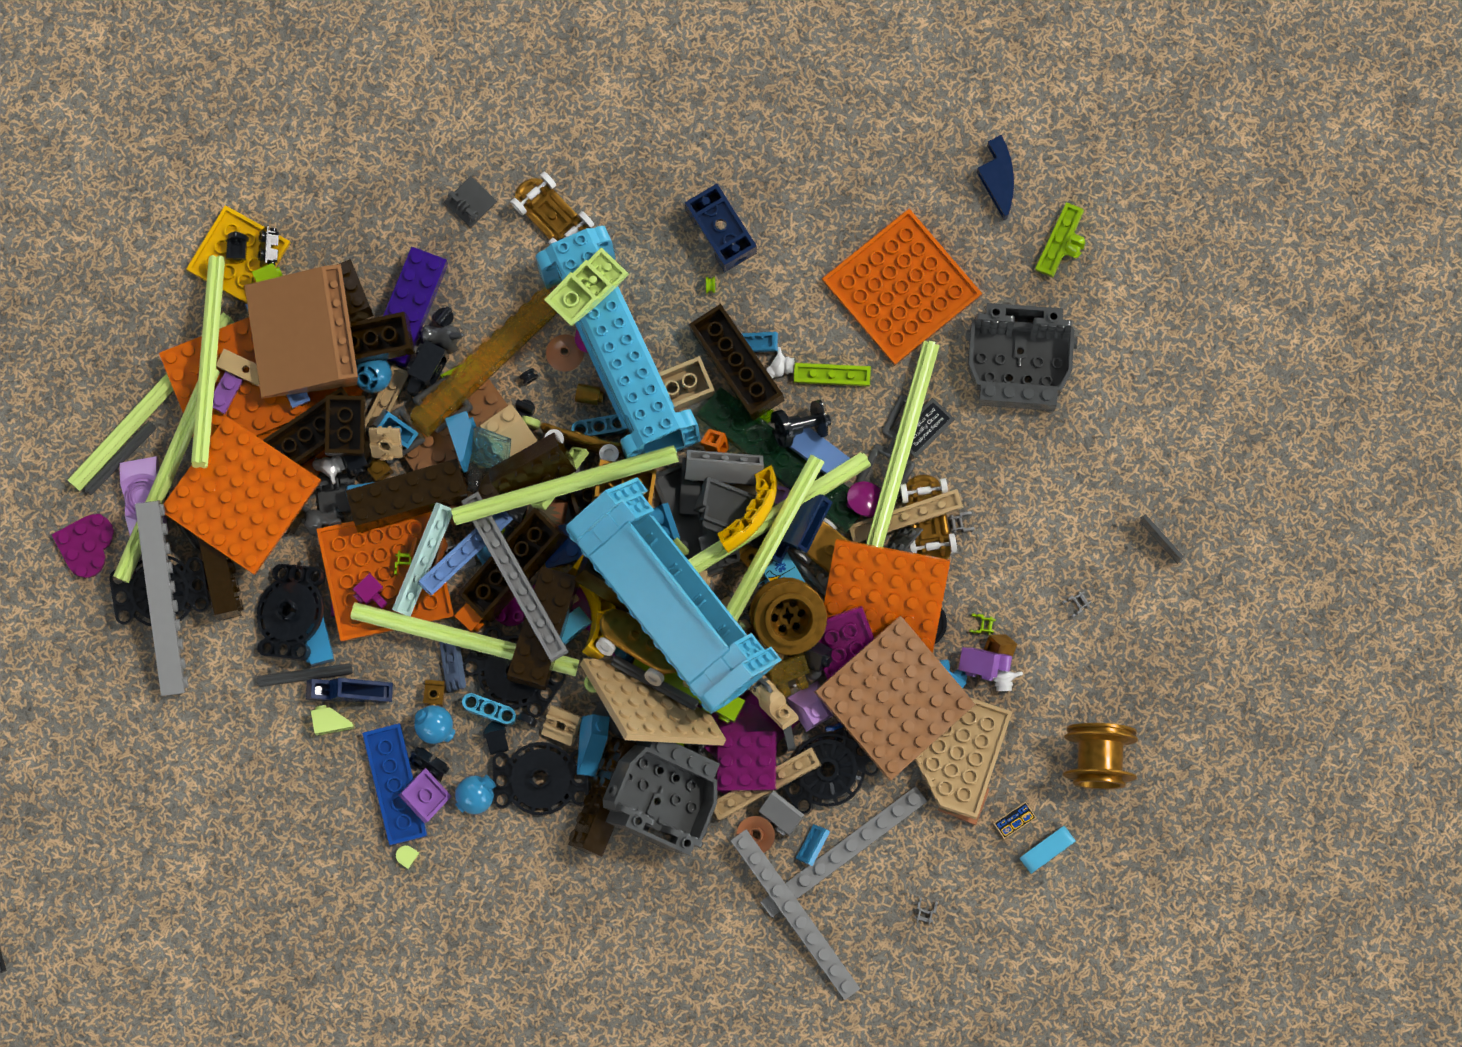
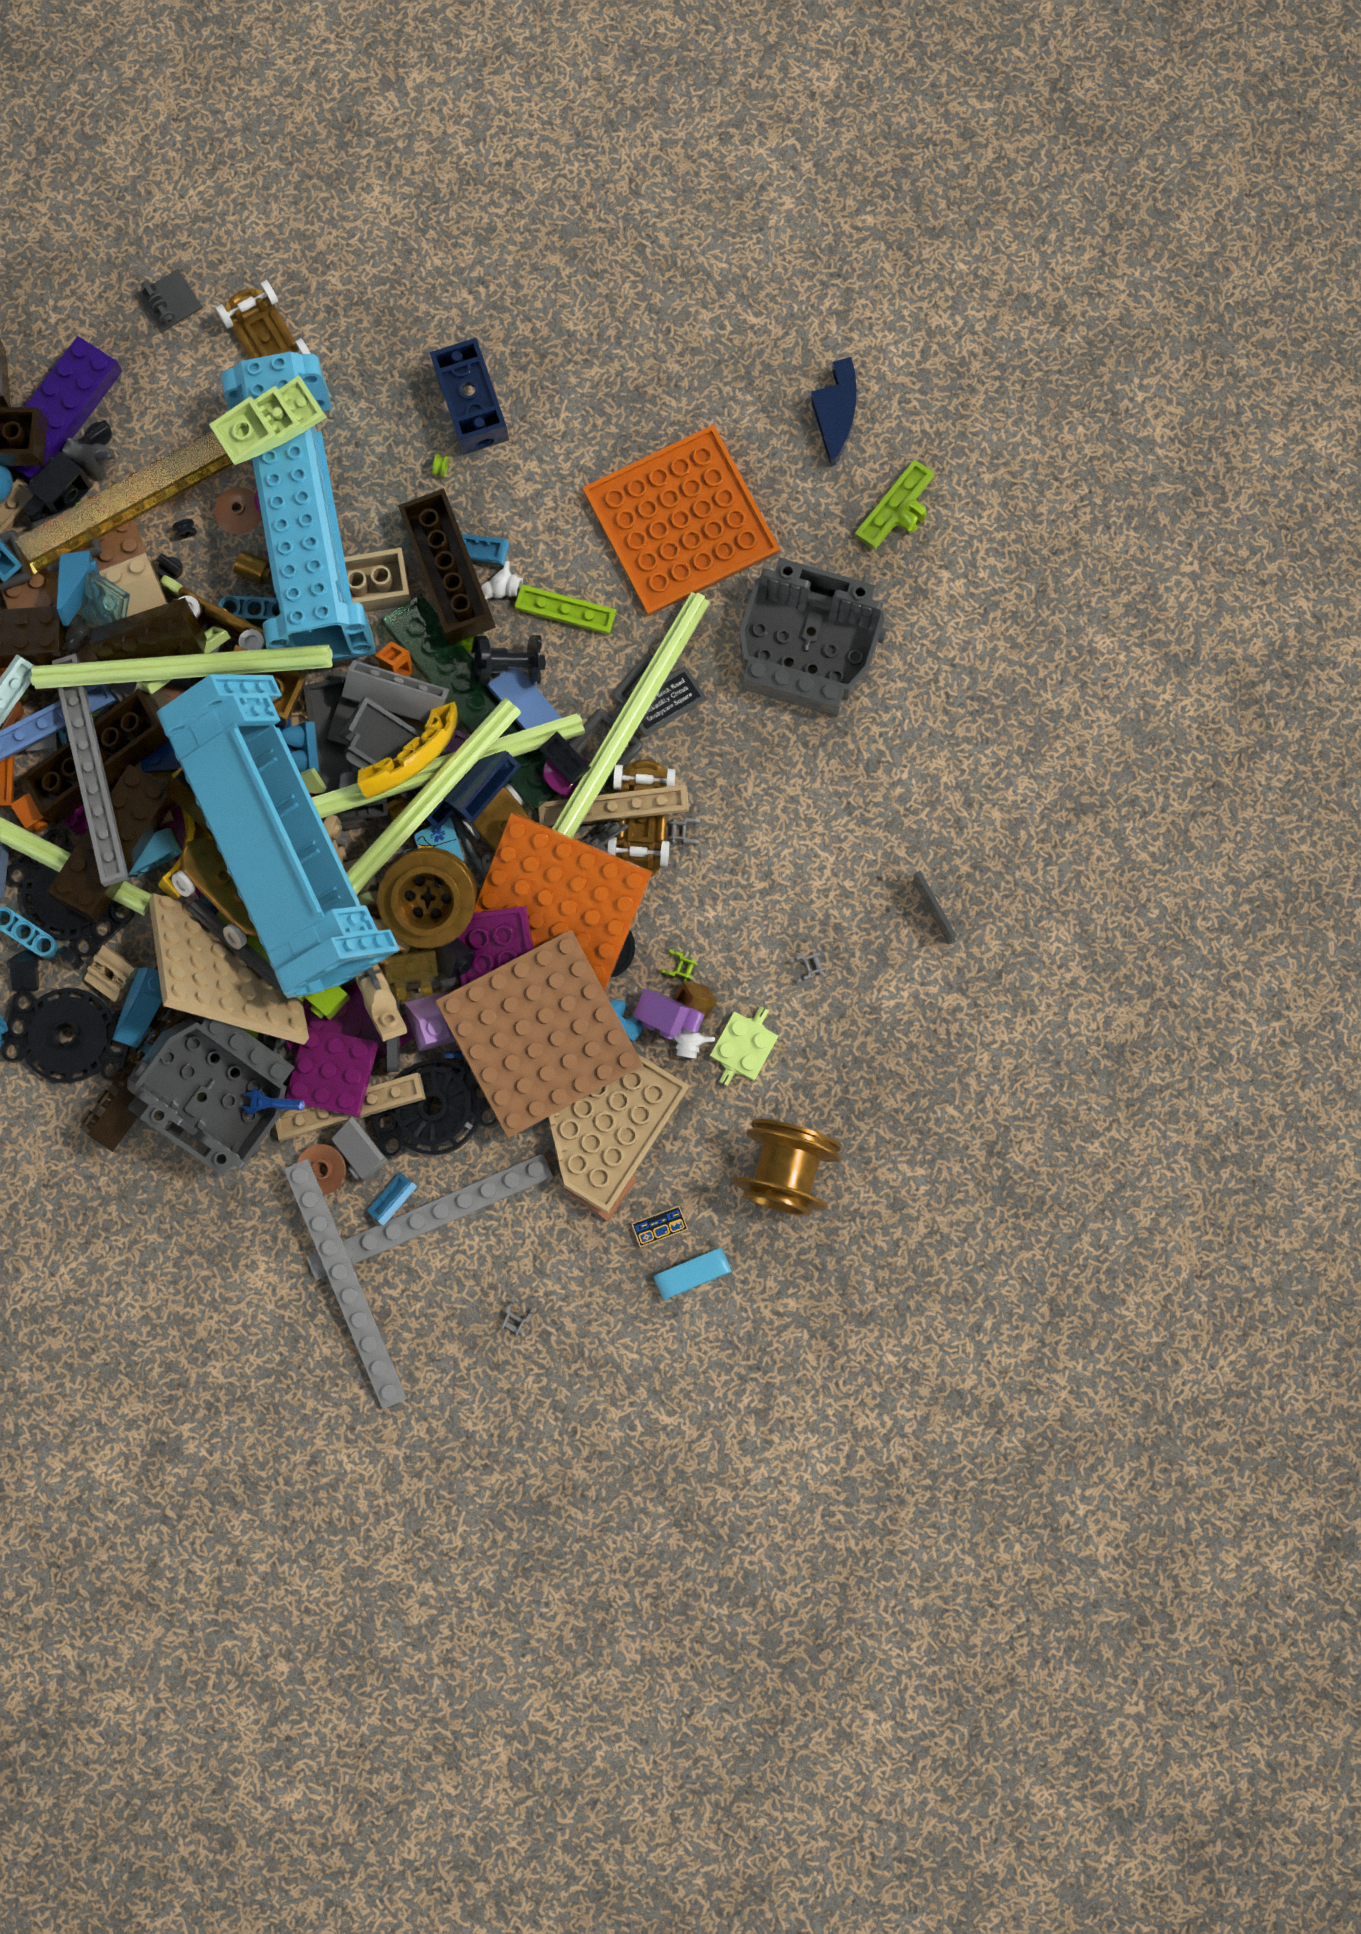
camera: 15 degrees right, 0 degrees up
(700, 795) = (261, 1102): none -> blue piece
(862, 488) = (565, 758): none -> black plate
(1044, 673) = (743, 1046): none -> yellowish green plate

